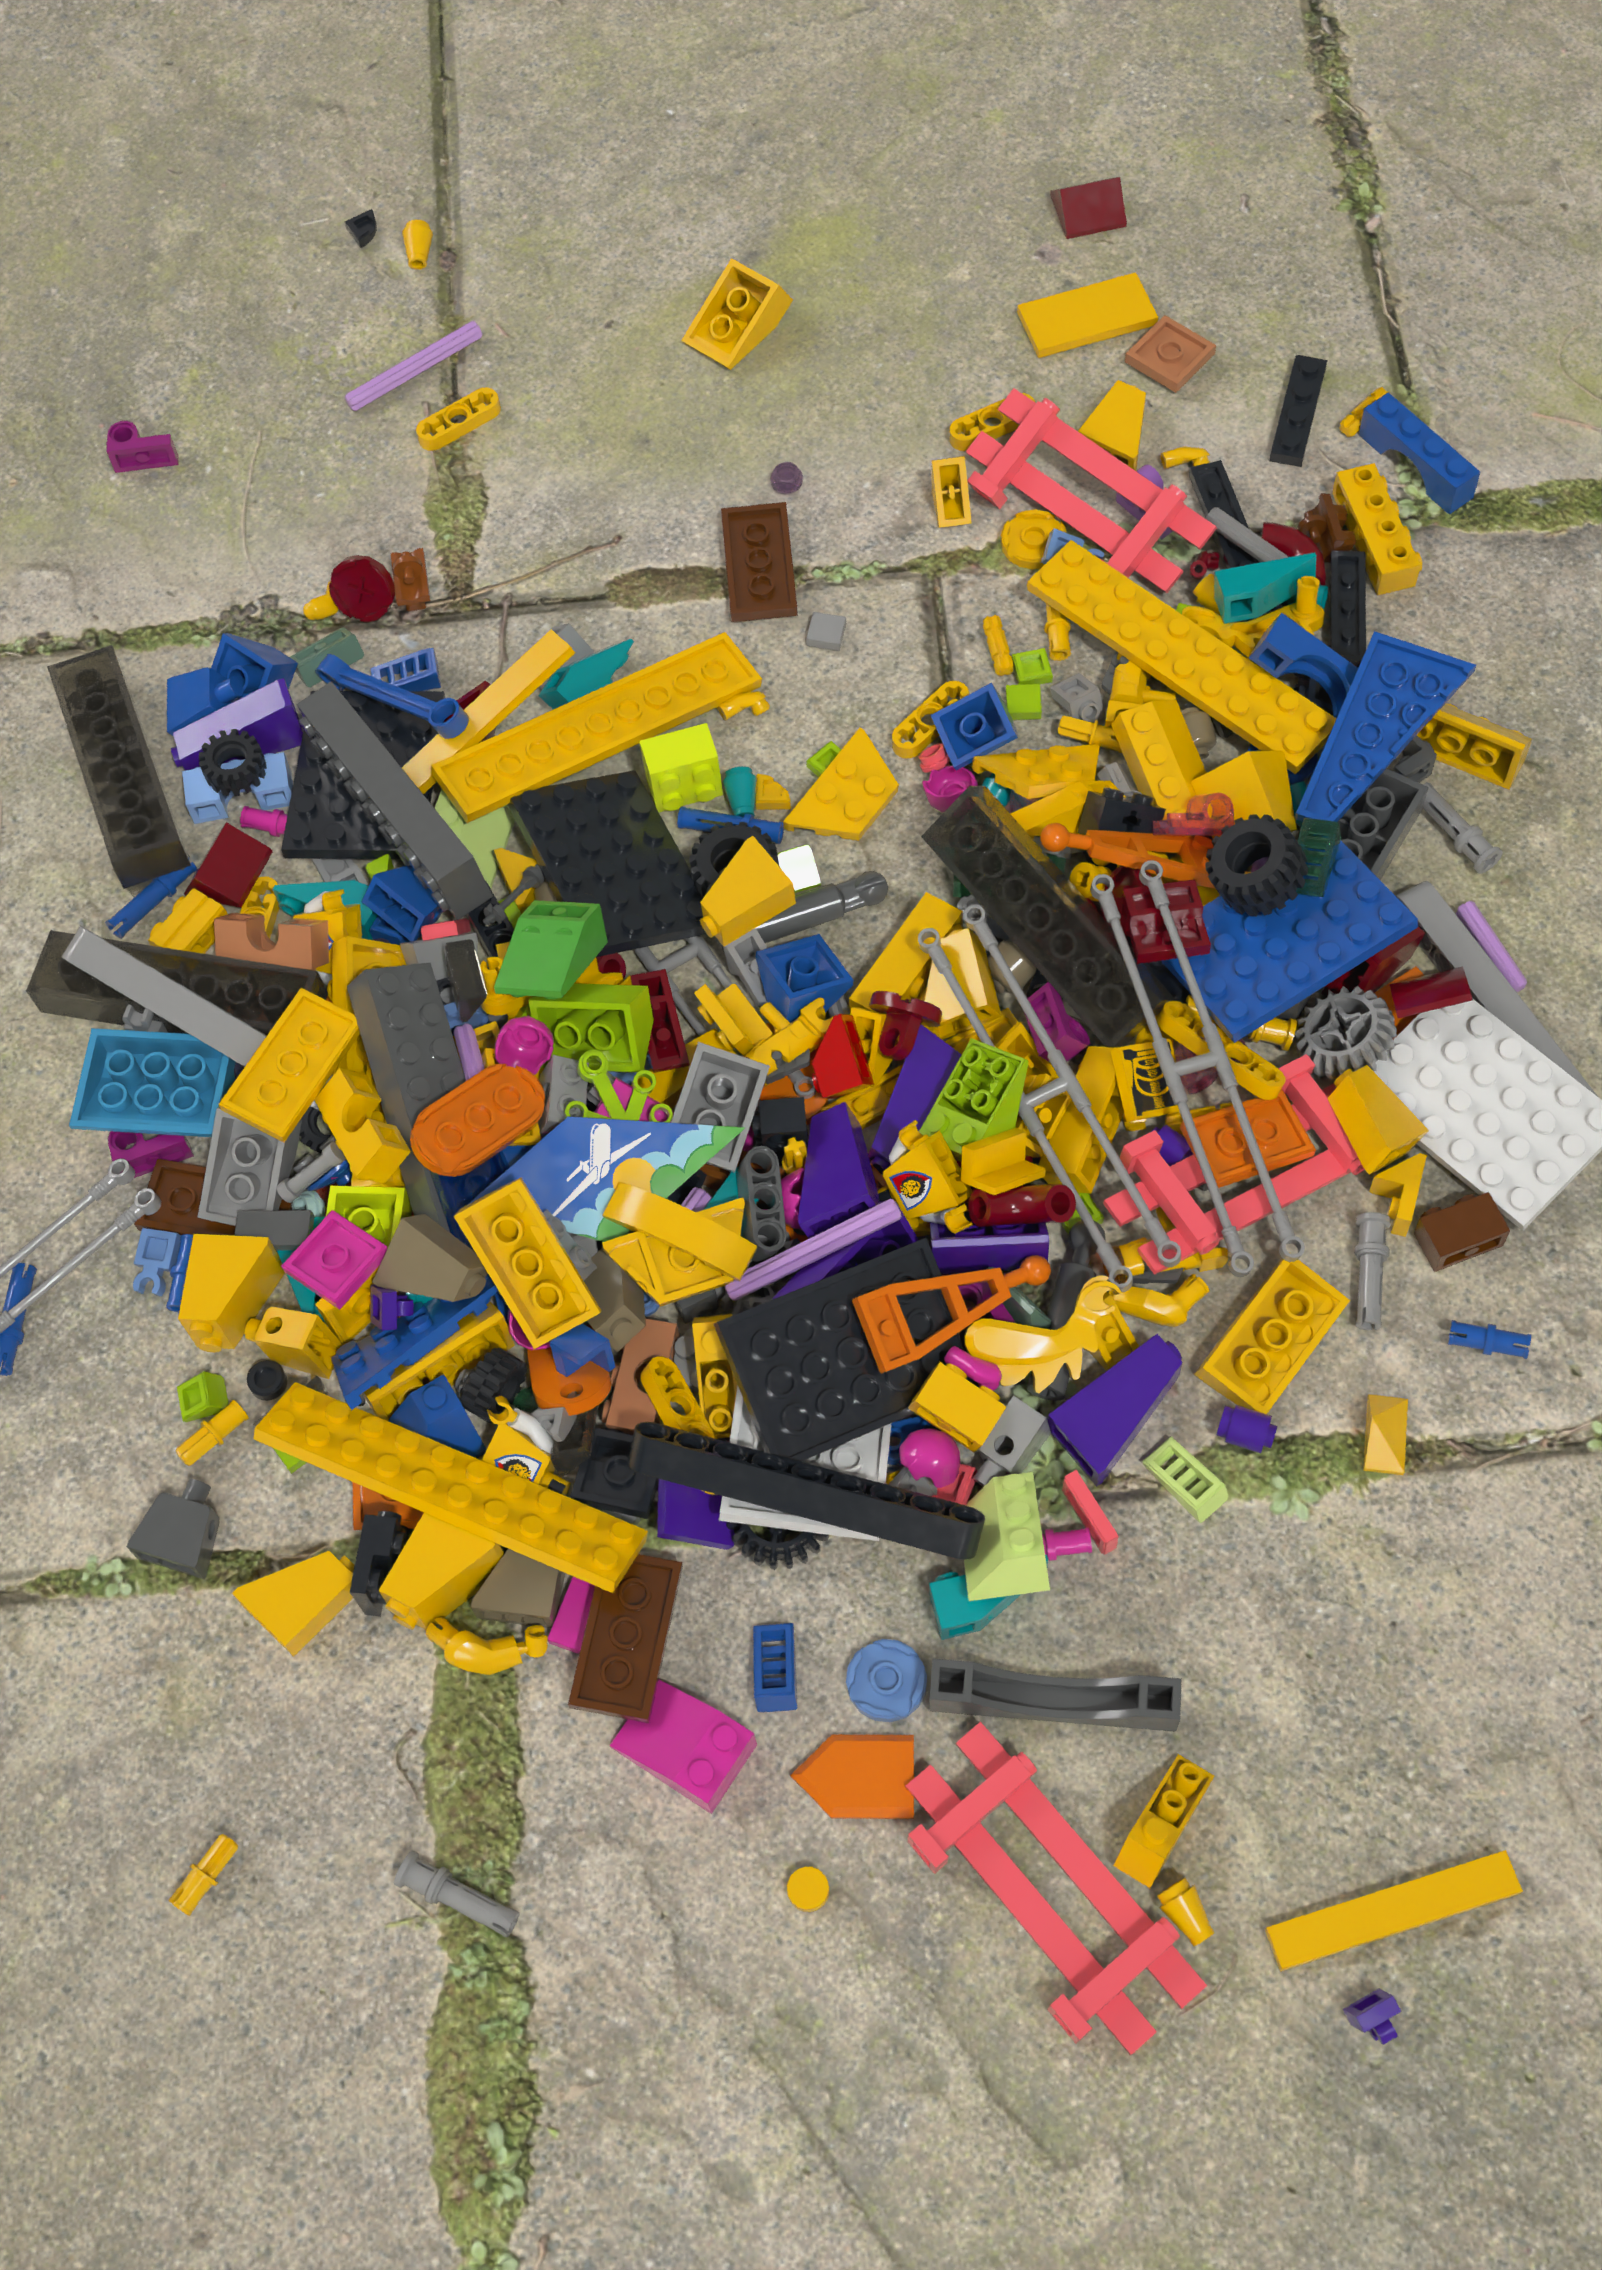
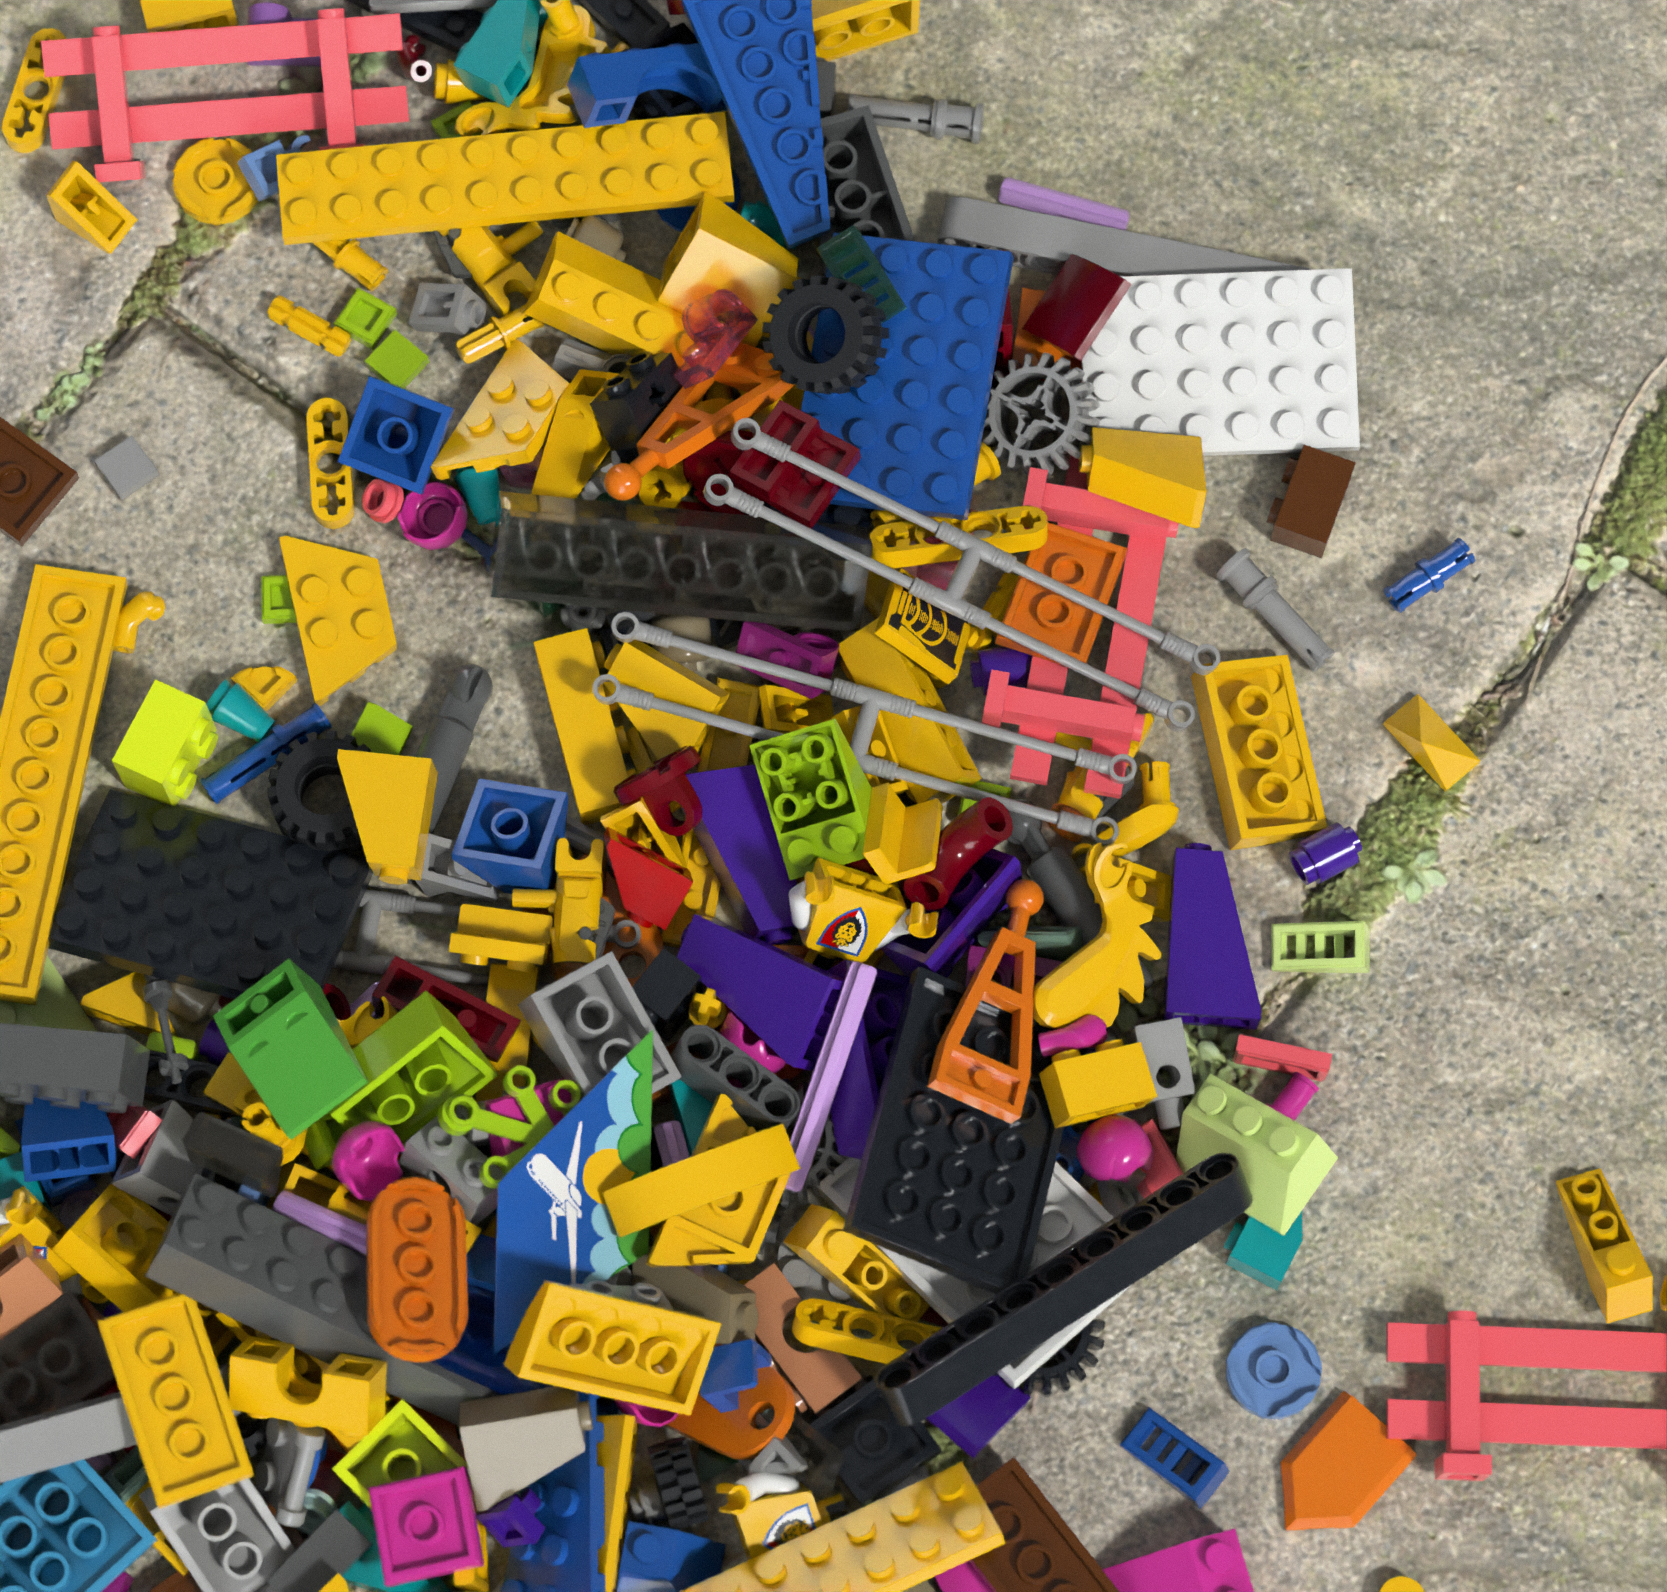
camera: 55 degrees left, 10 degrees up
(1112, 1702) = (1422, 1239): dark grey arch -> none
(1401, 1185) = (1229, 505): yellow slope -> none

